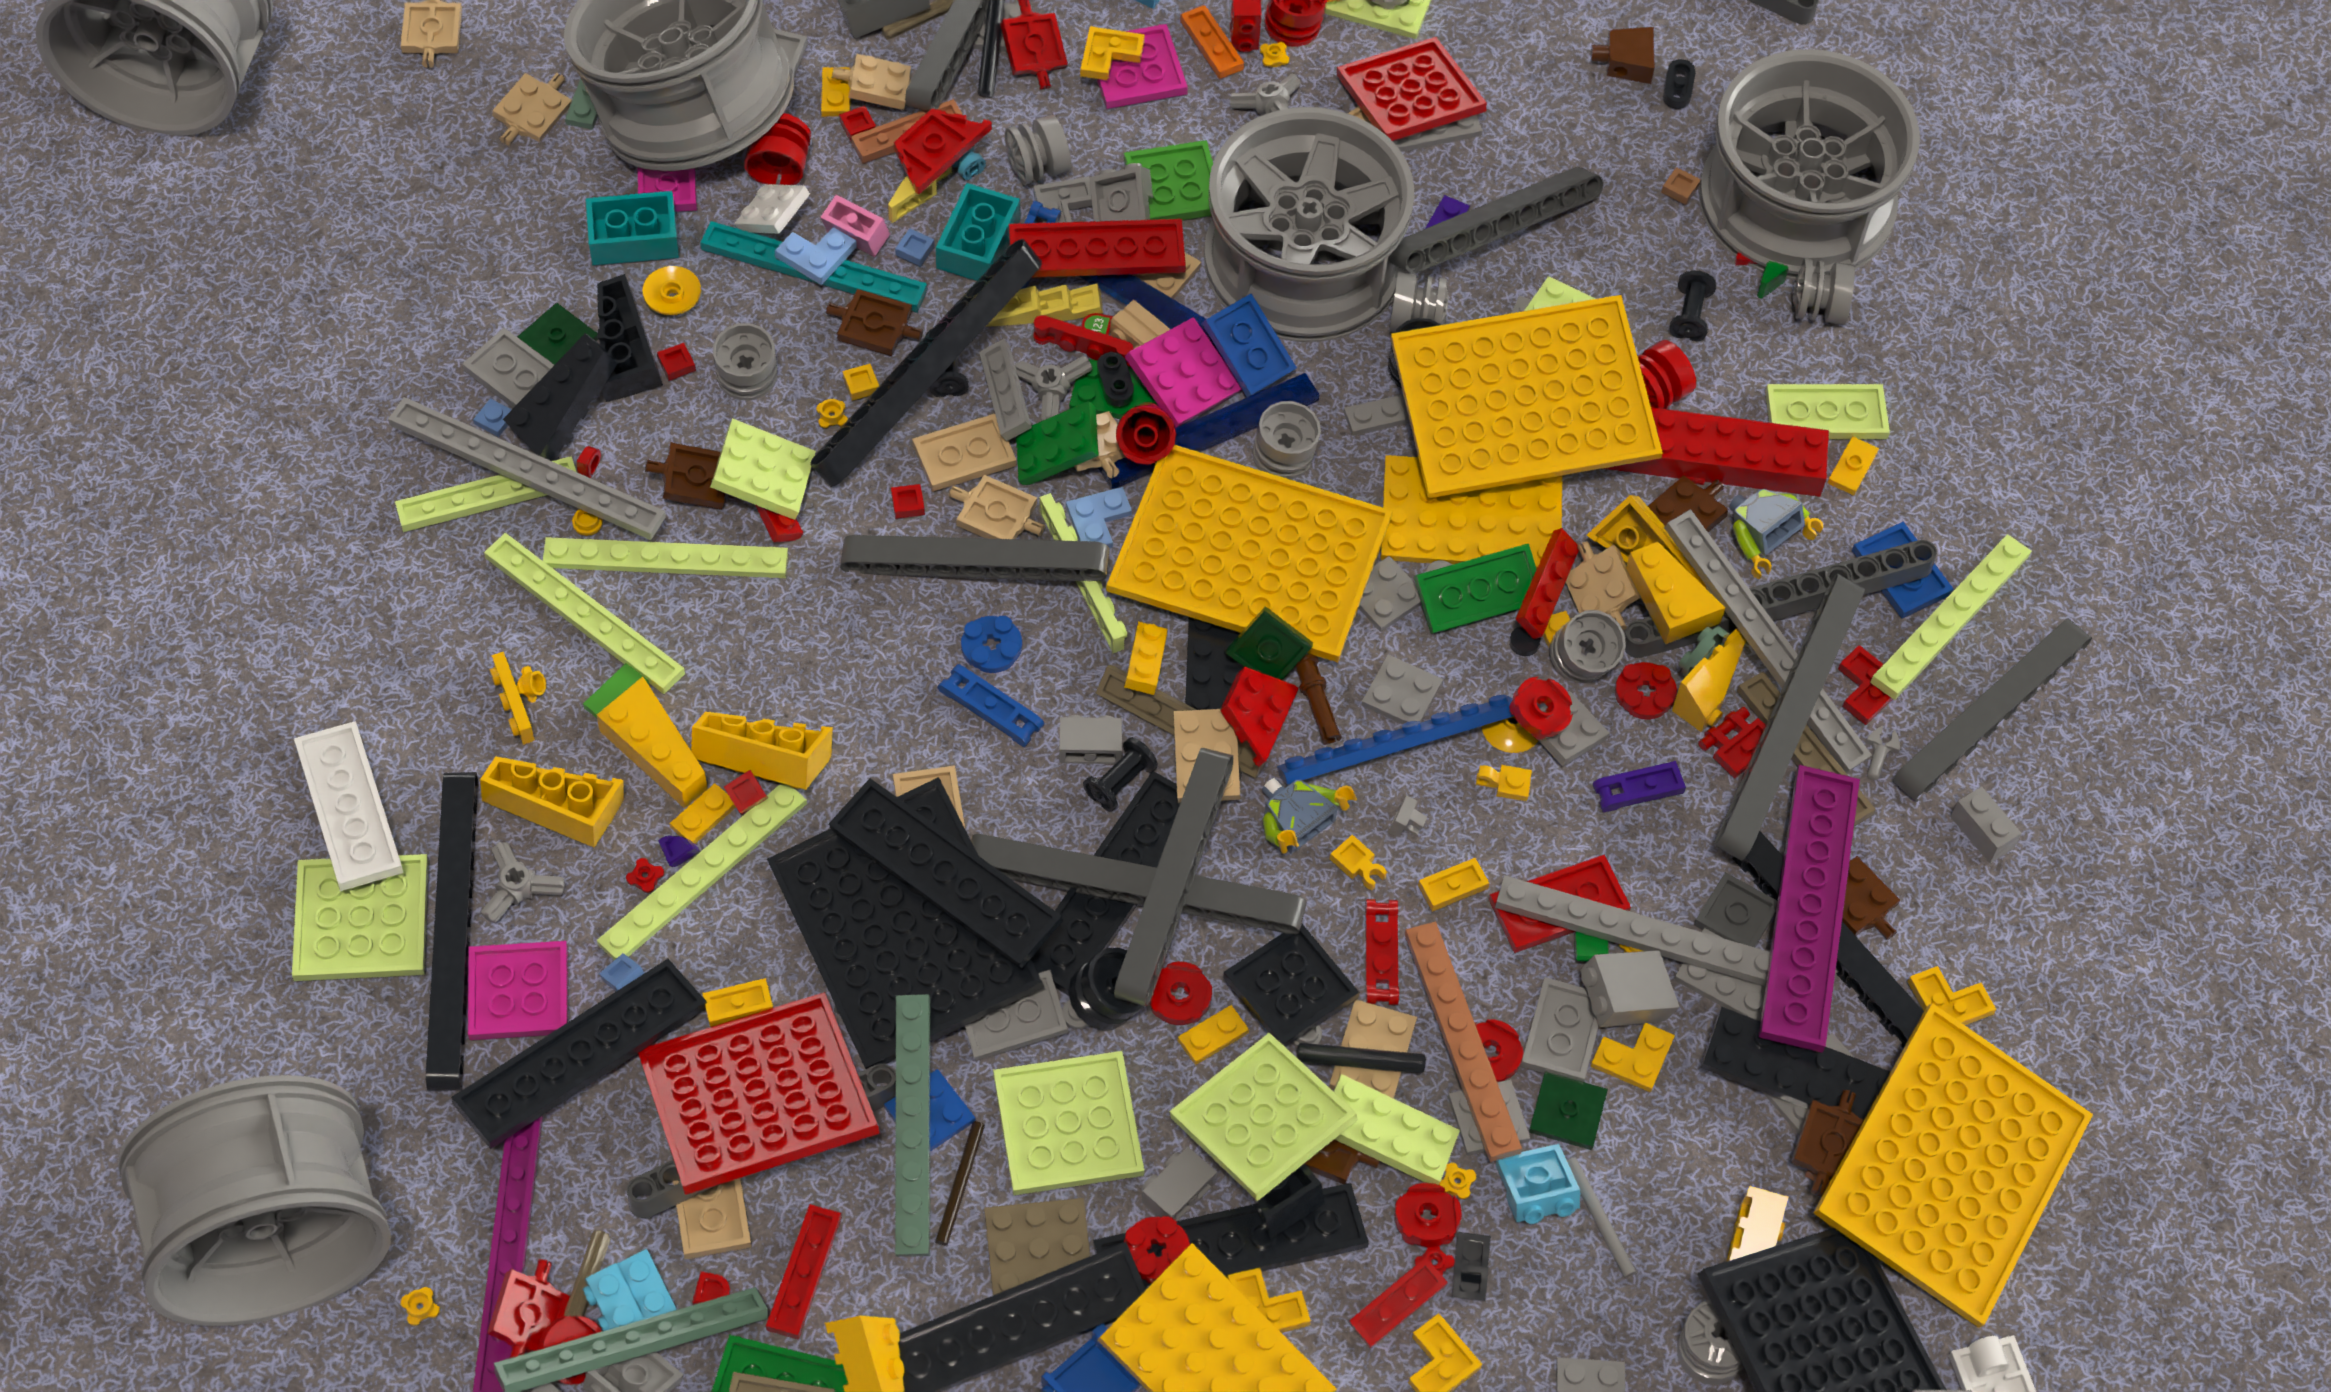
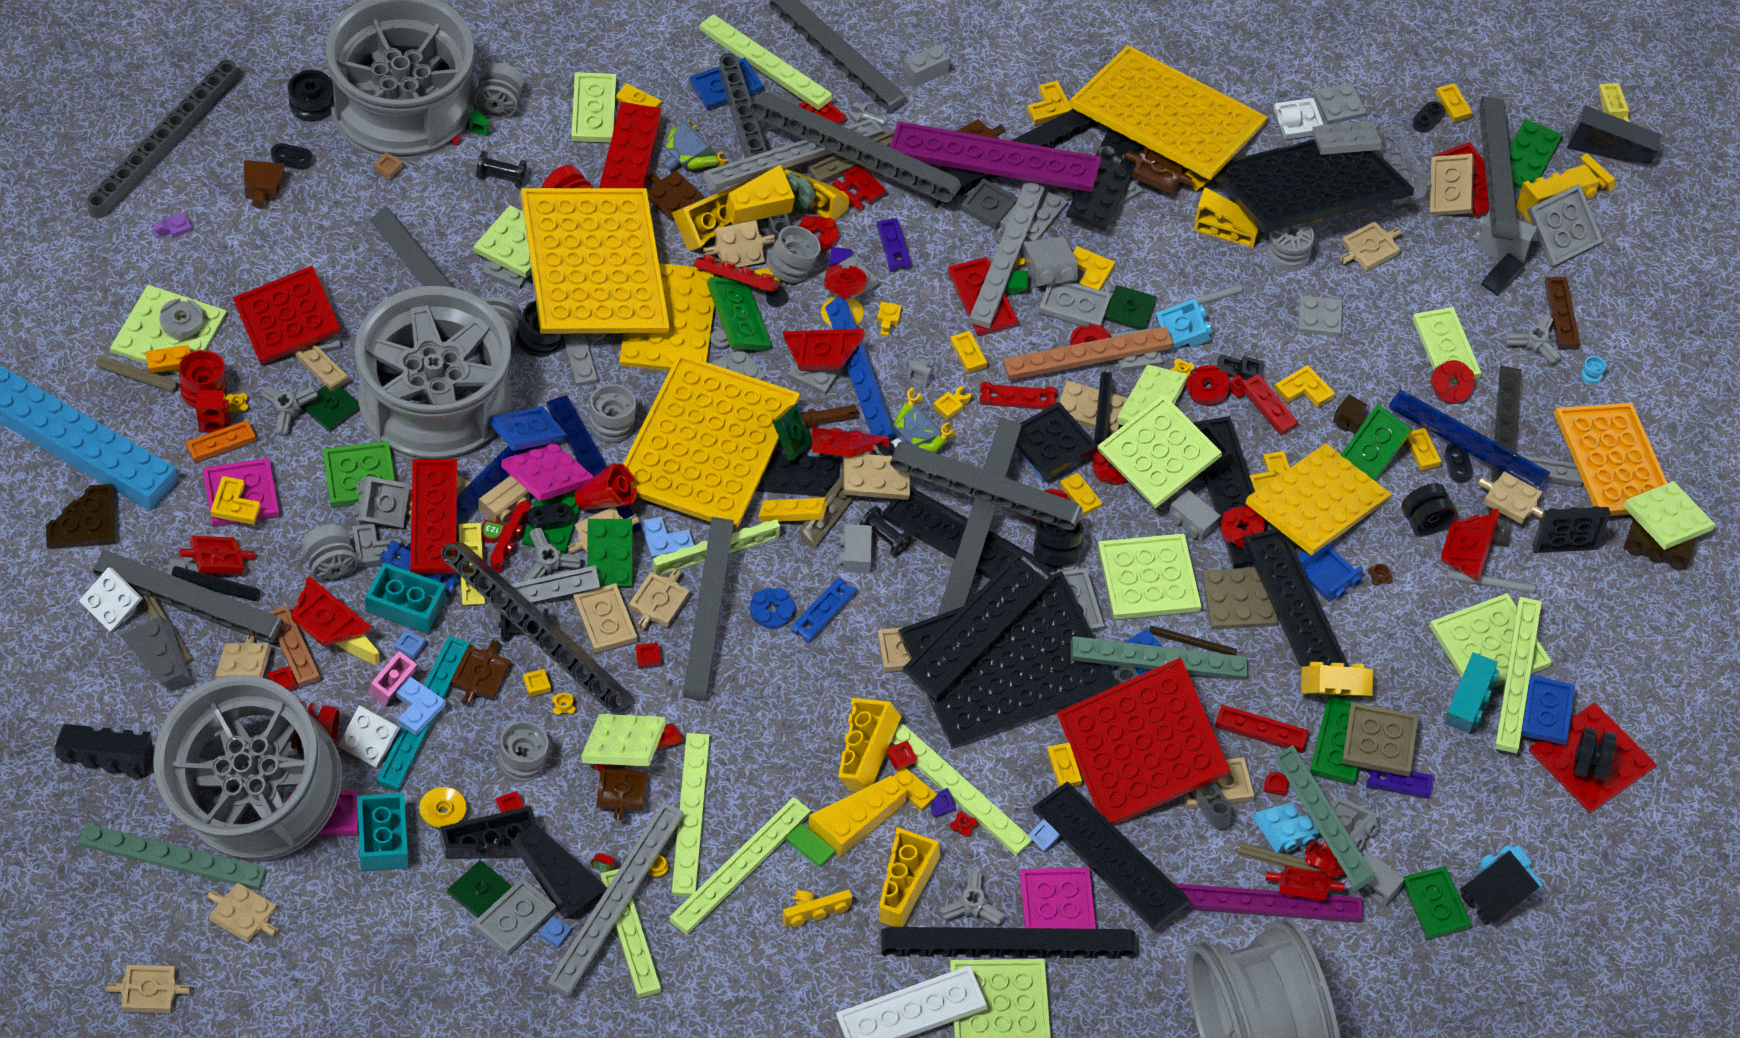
camera: 90 degrees left, 5 degrees down
(1422, 684) = (822, 347): none -> red wing
(1610, 717) = (839, 255): none -> dark purple tile

